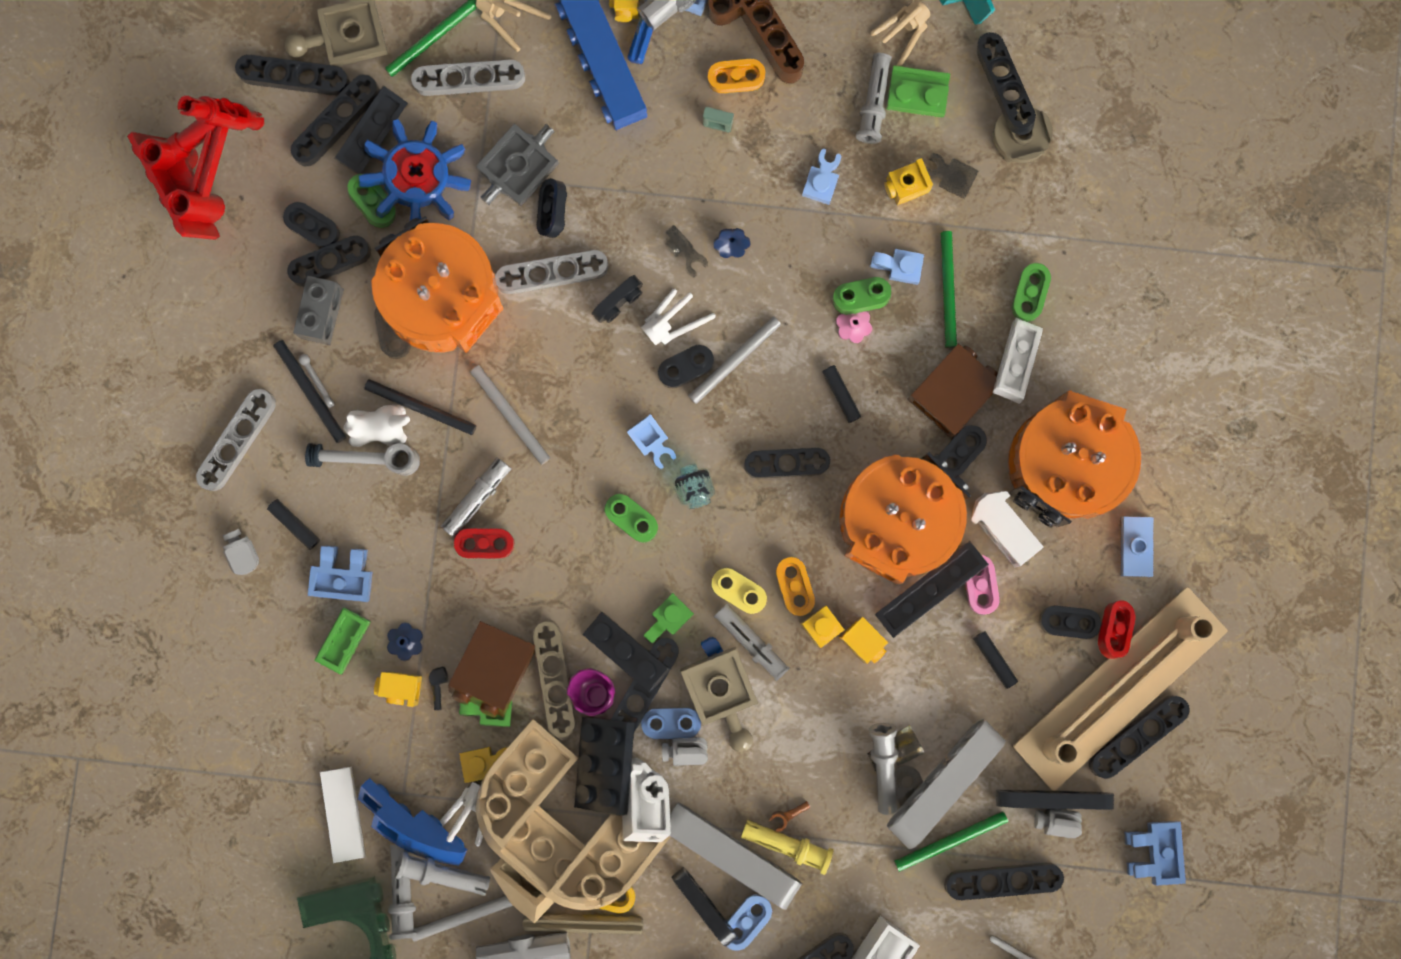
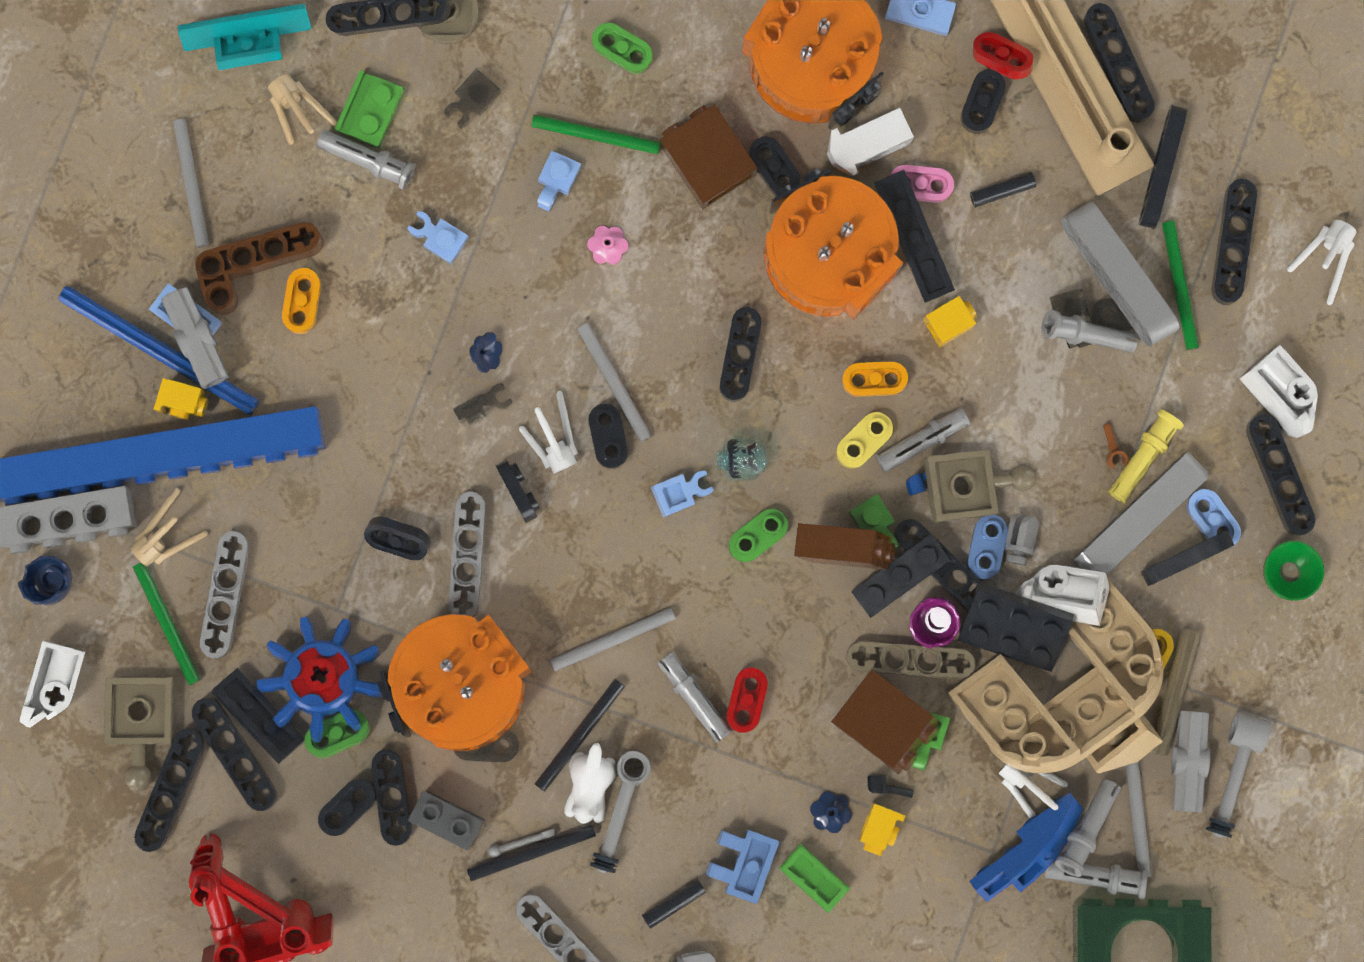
camera: 80 degrees left, 0 degrees up
(342, 814) = (999, 922): white tile -> none
(477, 763) = (980, 761): yellow plate -> none
(517, 164) = (338, 563): dark grey plate -> none
(636, 593) = (844, 546): none -> reddish brown brick
(718, 119) = (346, 333): sand green tile -> none
(822, 626) = (925, 361): yellow brick -> none
(841, 394) = (680, 277): black piece -> none
(862, 294) = (579, 227): bright green plate -> none
(902, 192) = (464, 133): yellow brick -> none
(1017, 360) = (693, 81): white tile -> none
(1059, 822) = (1187, 168): light grey arm -> none
(1165, 851) = (1243, 68): medium blue plate -> none

